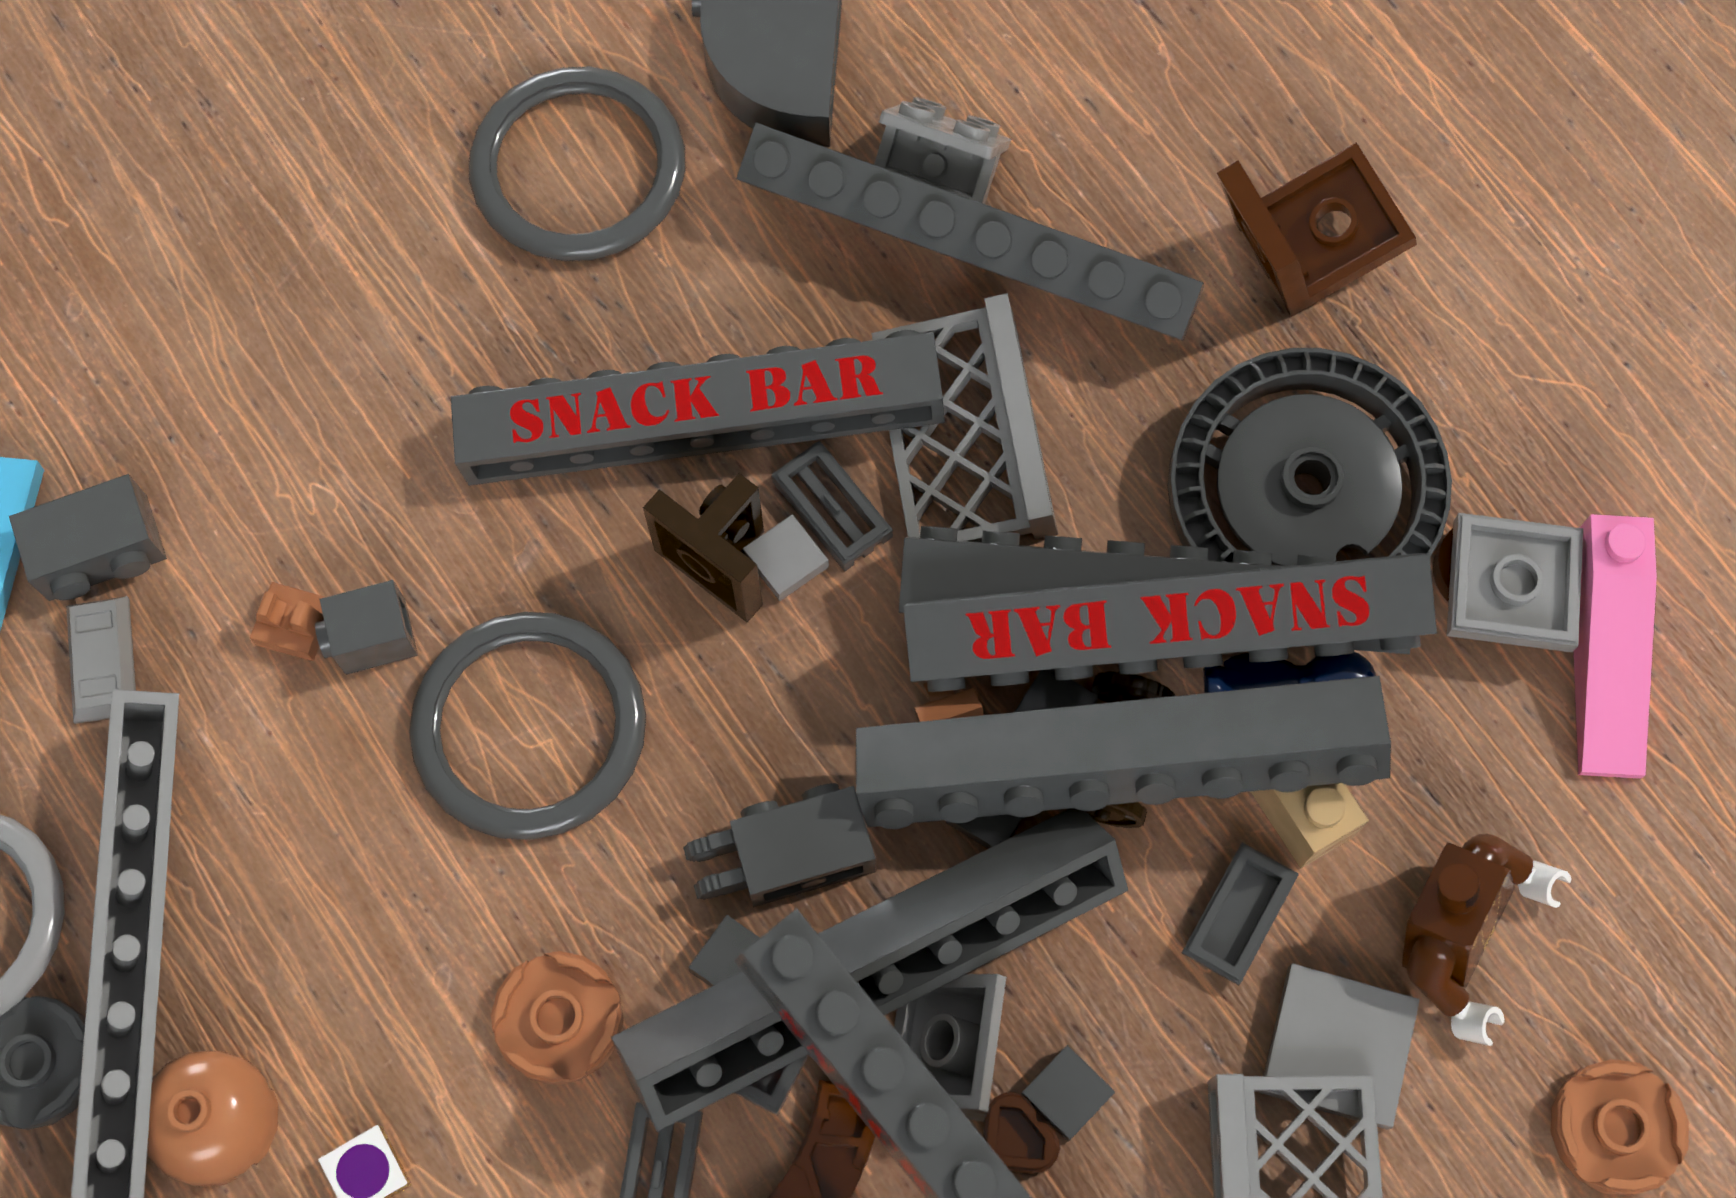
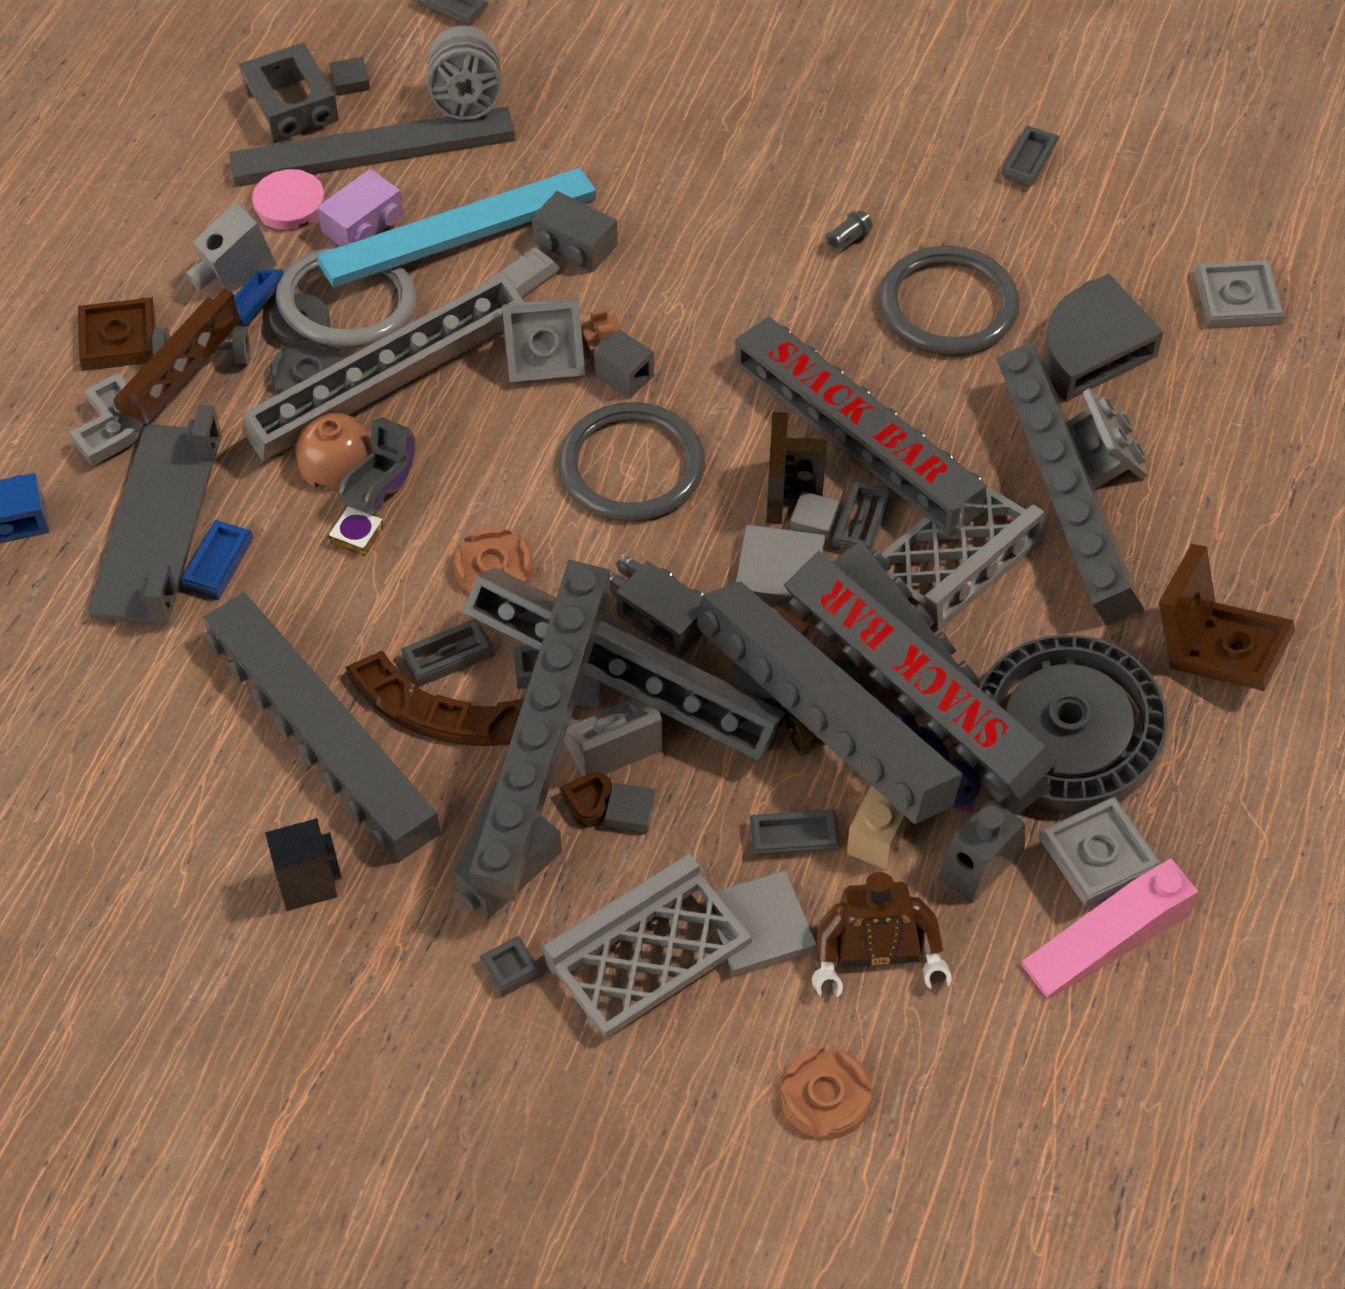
camera: 55 degrees right, 15 degrees down
(253, 709) = (543, 339): none -> light grey bracket
(297, 1080) = (382, 470): none -> dark grey animal
(373, 189) = (857, 225): none -> dark grey pin
(831, 654) = (772, 558): none -> light grey tile
(1429, 707) = (992, 841): none -> dark grey torso

